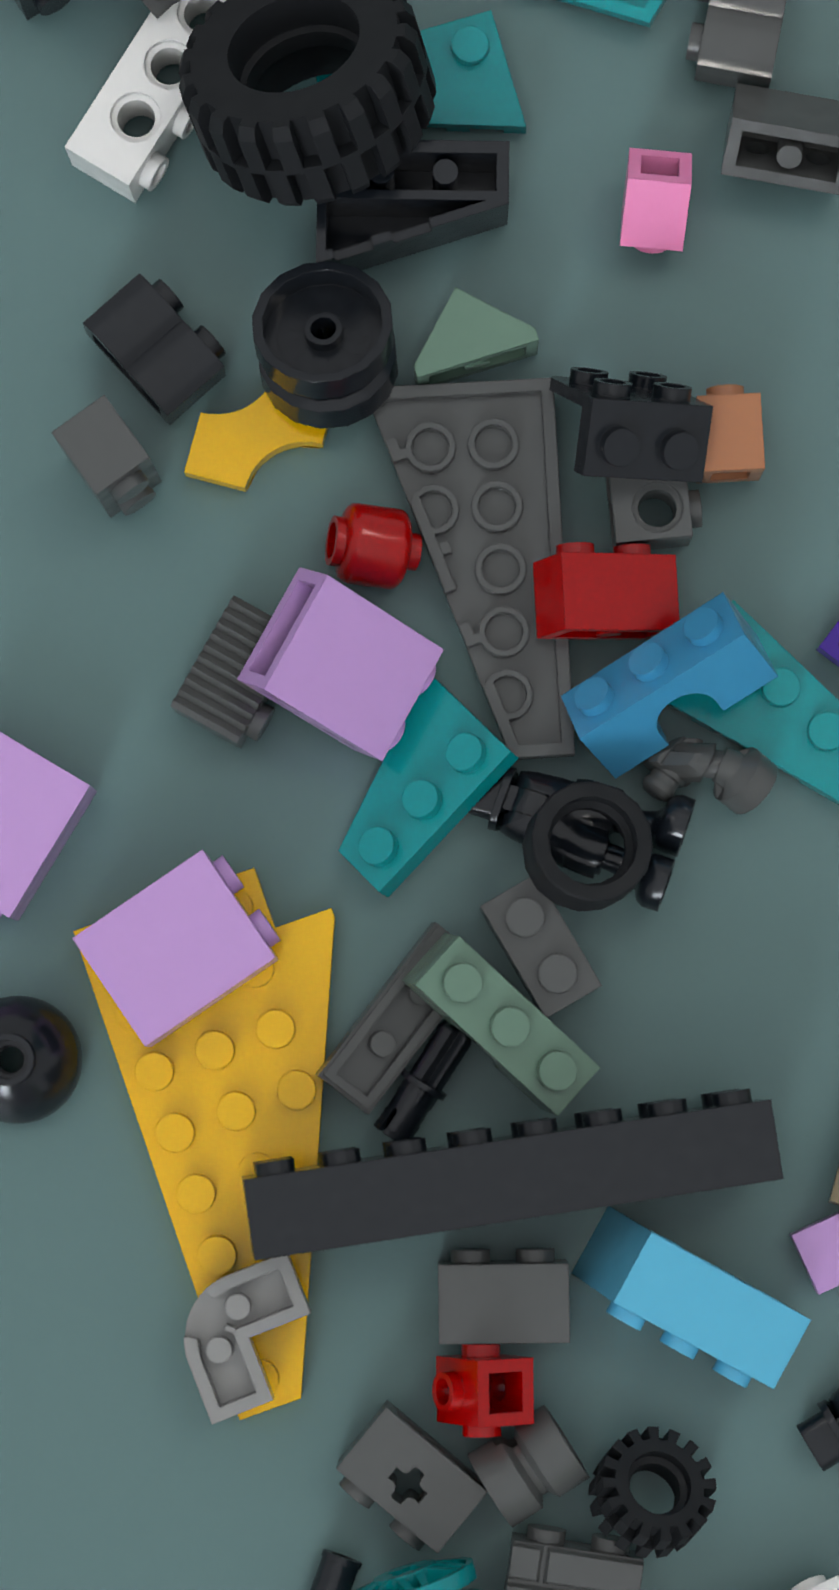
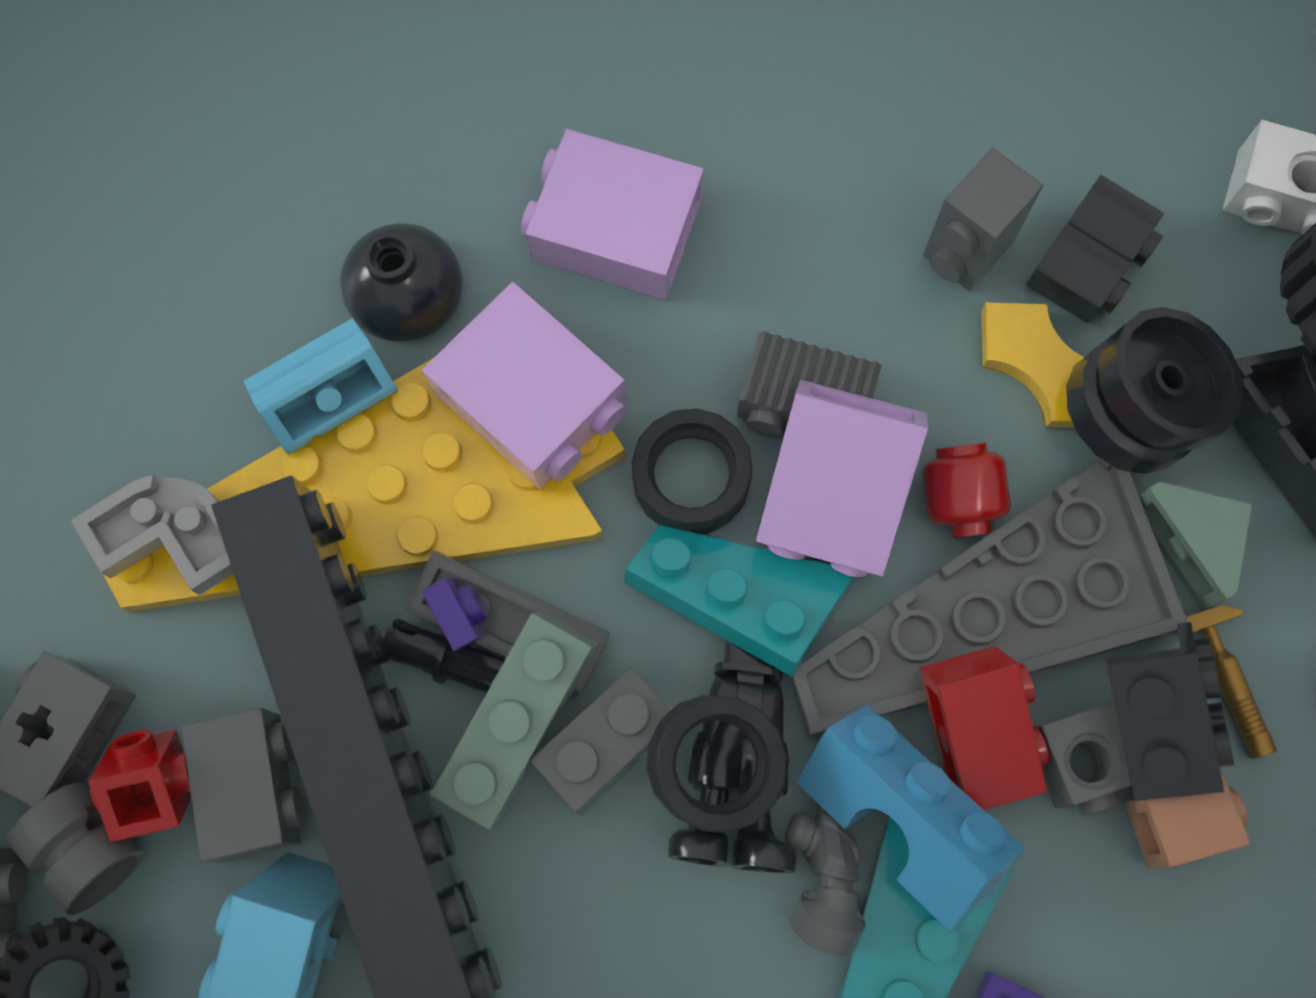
camera: 75 degrees right, 10 degrees down
(119, 1158) = (319, 386): none -> medium azure brick
(277, 761) = (686, 425): none -> black tyre
(390, 1058) = (457, 611): none -> dark purple plate
(608, 350) = (1233, 682): none -> pearl gold piece

